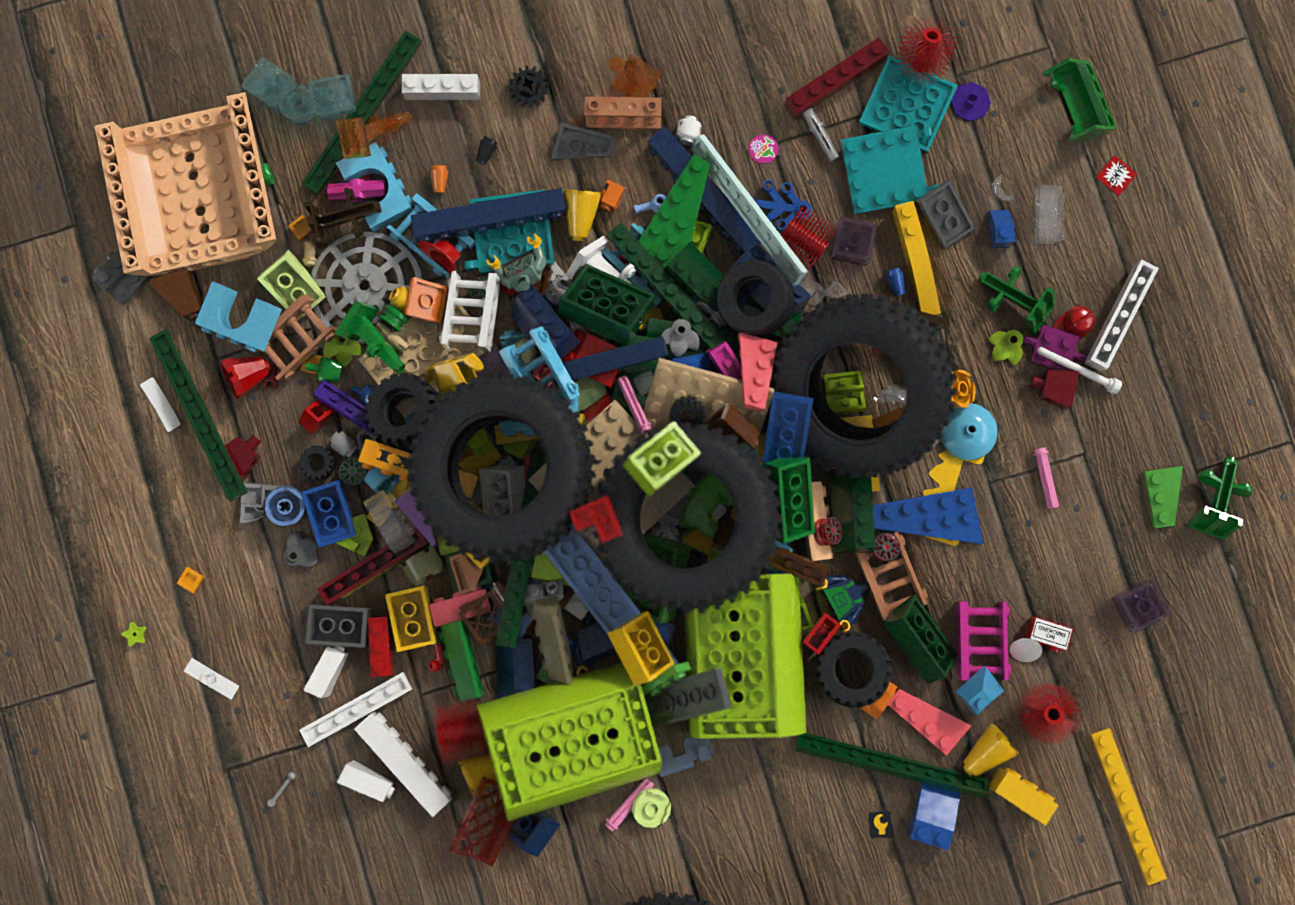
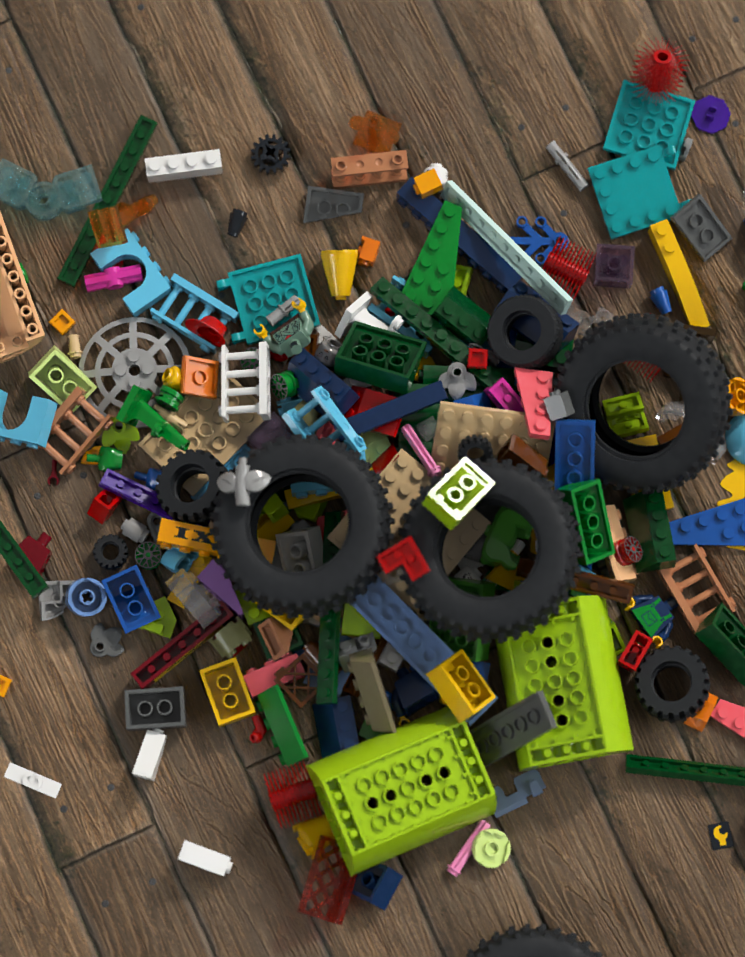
camera: 10 degrees left, 5 degrees down
(244, 373) = (26, 473): red cone -> none
(271, 802) = (110, 894): light grey hinge -> none
(353, 213) = (114, 301): dark brown piece -> none
(355, 709) = (183, 790): white plate -> none
(381, 646) = (200, 724): red brick -> none
(403, 763) = (243, 841): white brick -> none
(439, 178) = (193, 255): orange cone -> none
(444, 418) = (242, 482): none -> light grey plant
(450, 375) = (235, 445): yellow piece -> none
(489, 215) = (250, 286): dark blue brick -> none
(509, 319) = (284, 384): none -> green wheel
(517, 244) = (282, 311): none -> light grey axle
(650, 205) = (410, 255): light blue bar -> none
(666, 679) = (489, 712): bright green plate -> none
(678, 135) = (427, 184): none -> light orange brick
(703, 318) = (477, 358): none -> red tile
(763, 149) = (512, 186): sticker -> none
(778, 378) = (558, 405): none -> brick
(837, 78) = (575, 108): dark red brick -> none
(886, 547) = (687, 560): wheel -> none
(941, 133) = (685, 149): none -> light grey tile

